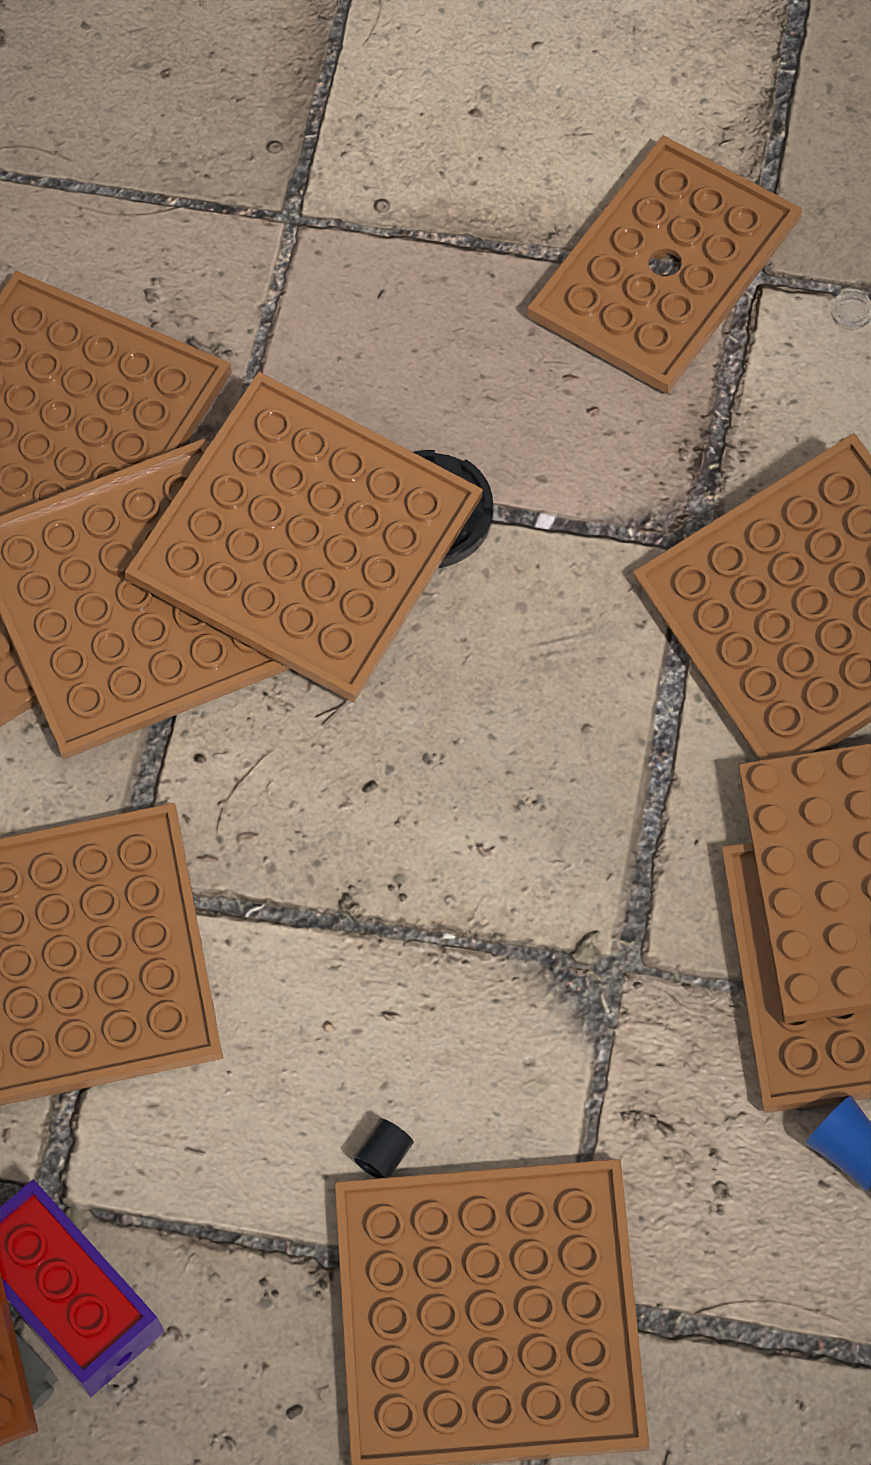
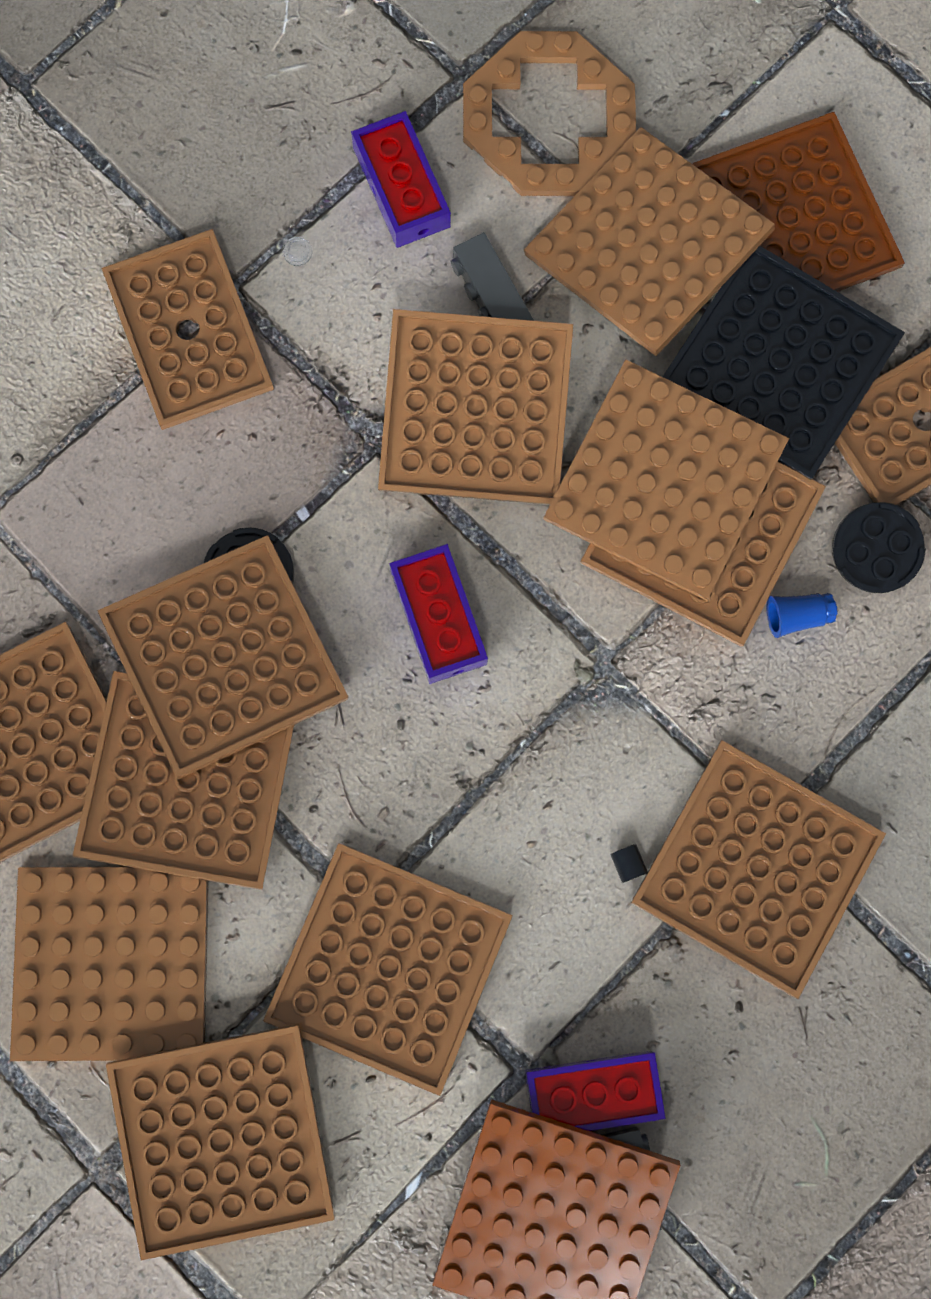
camera: 65 degrees left, 15 degrees up
(529, 729) = (438, 614): none -> red brick

